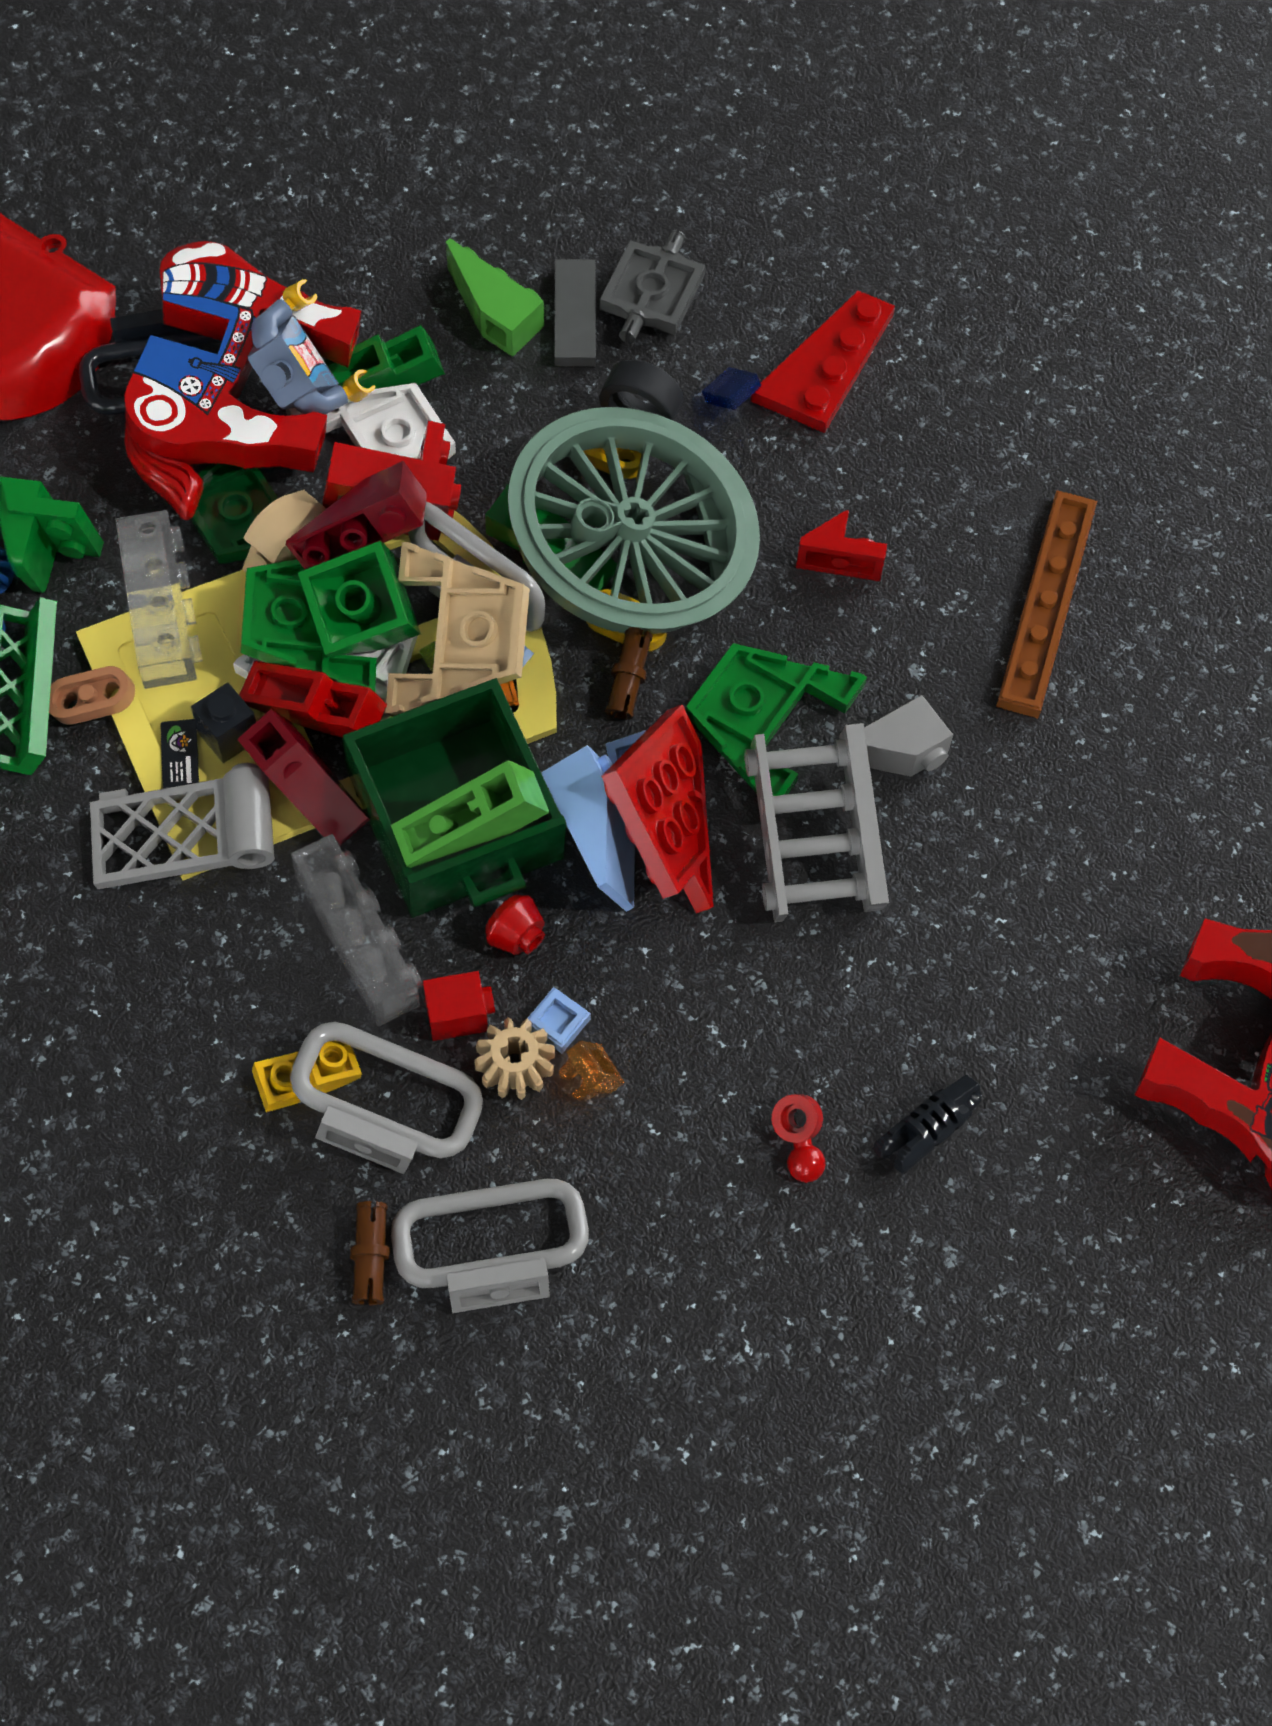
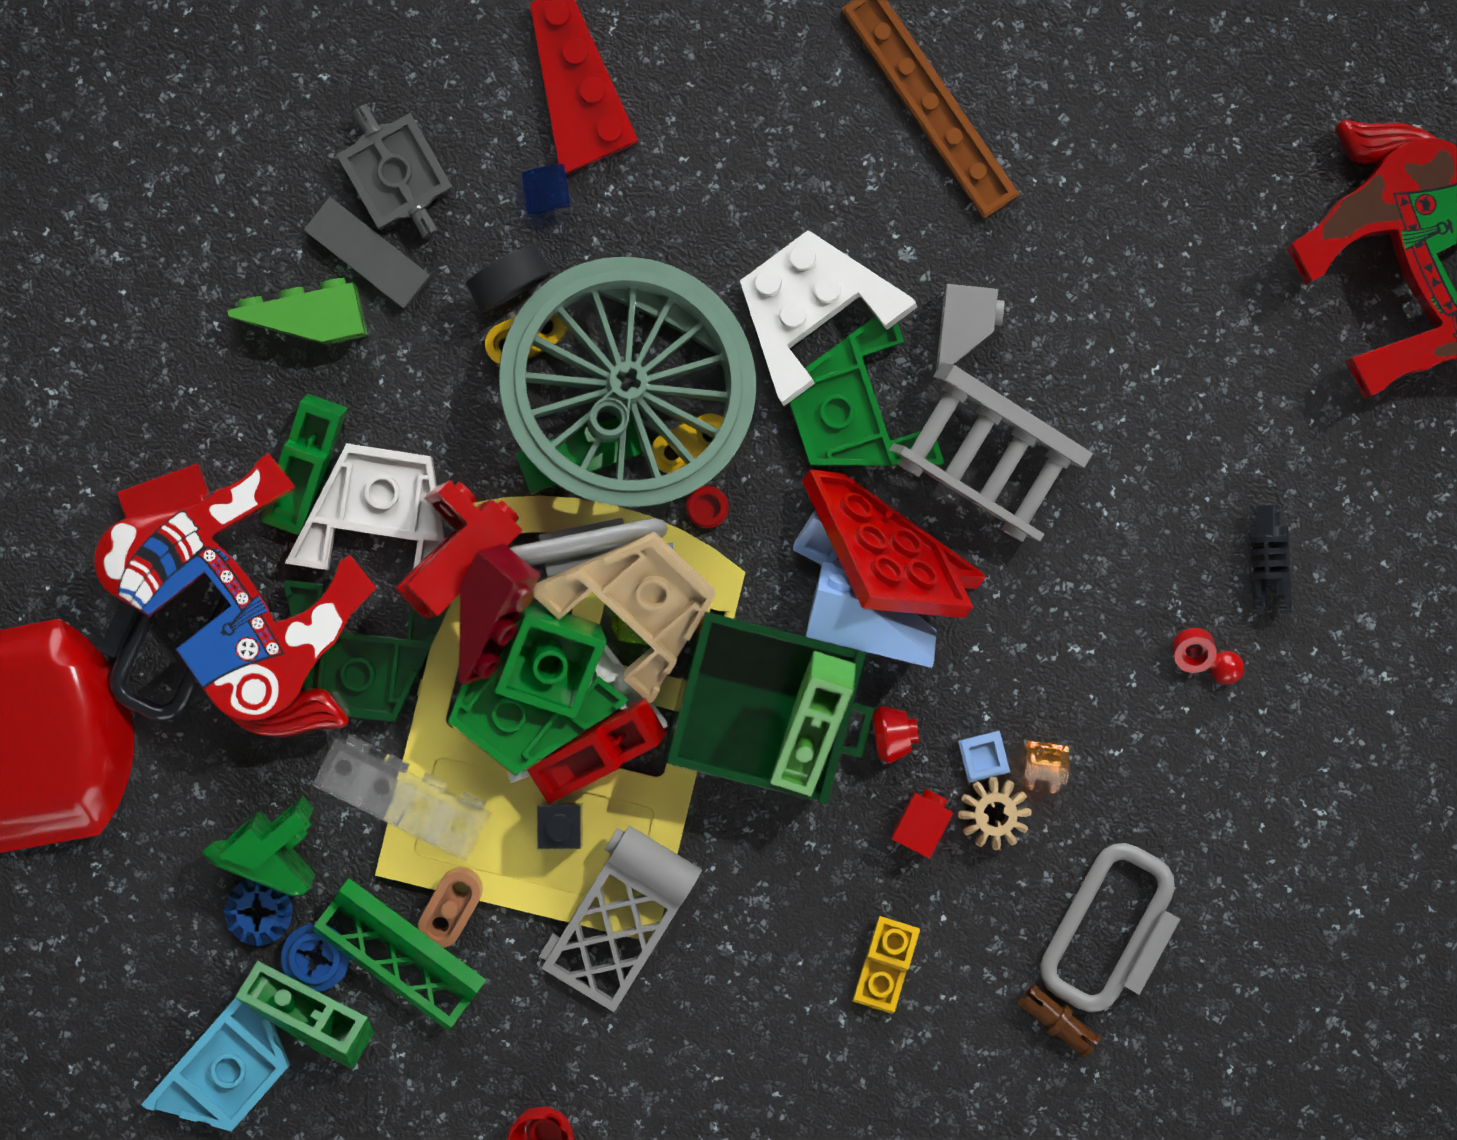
camera: 45 degrees left, 25 degrees up
(179, 753) = (551, 873): black sticker -> none
(276, 525) = (431, 663): tan brick -> none
(291, 363) = (280, 548): sand blue torso -> none
(303, 776) = (655, 802): dark red slope -> none
(356, 929) = (810, 854): clear brick -> none
(367, 1132) = (972, 958): light grey bar -> none
(585, 665) = (707, 507): none -> red tile
(628, 673) = (749, 487): reddish brown pin -> none
(814, 609) = (804, 290): none -> white wing
(831, 552) = (758, 237): red slope -> none

